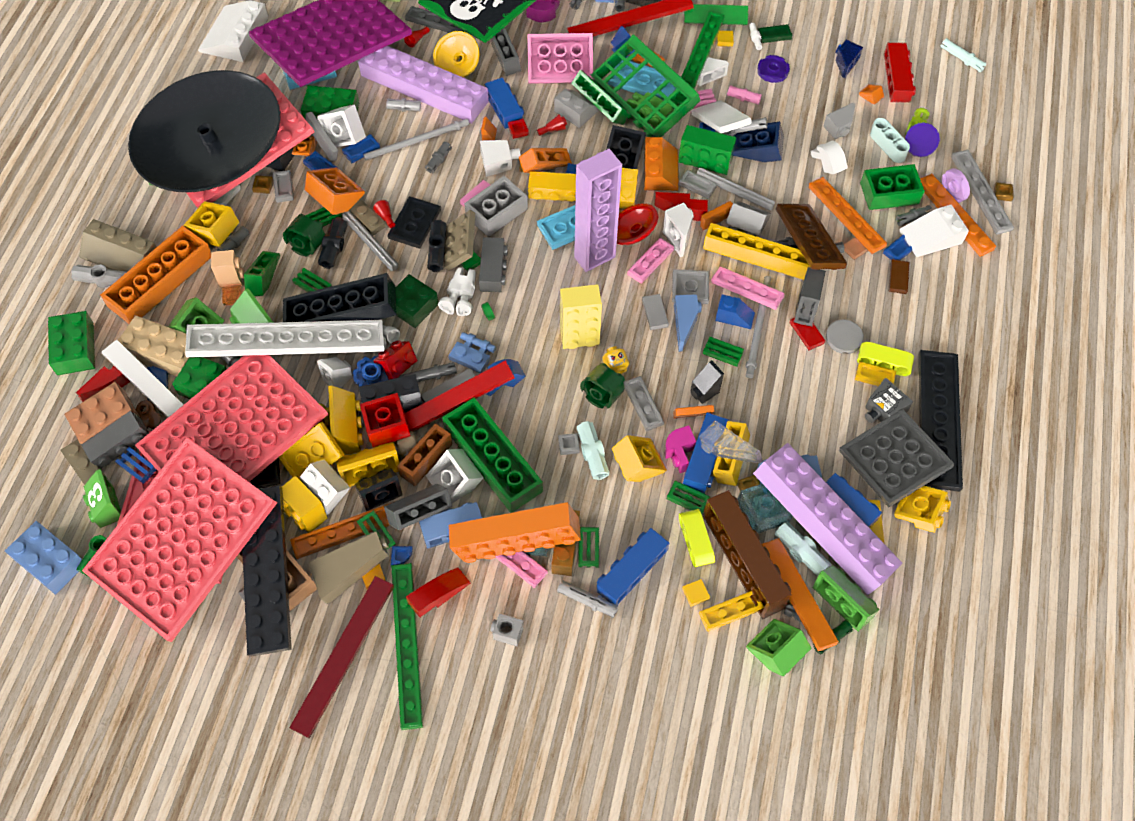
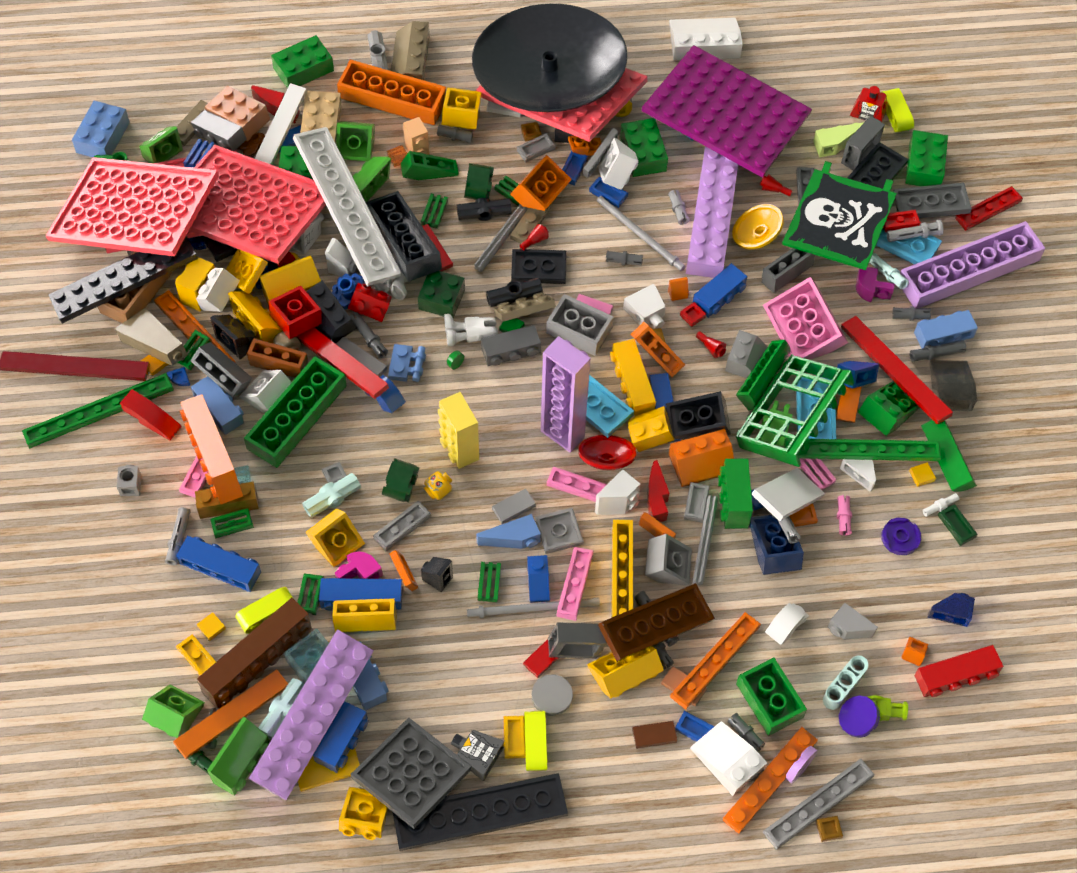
camera: 70 degrees right, 0 degrees up
(661, 35) = (888, 408): none -> green slope
(726, 444) = (362, 596): clear slope -> none
(841, 284) = (627, 673): none -> yellow slope
(969, 59) = (1024, 749): light aqua pin -> none

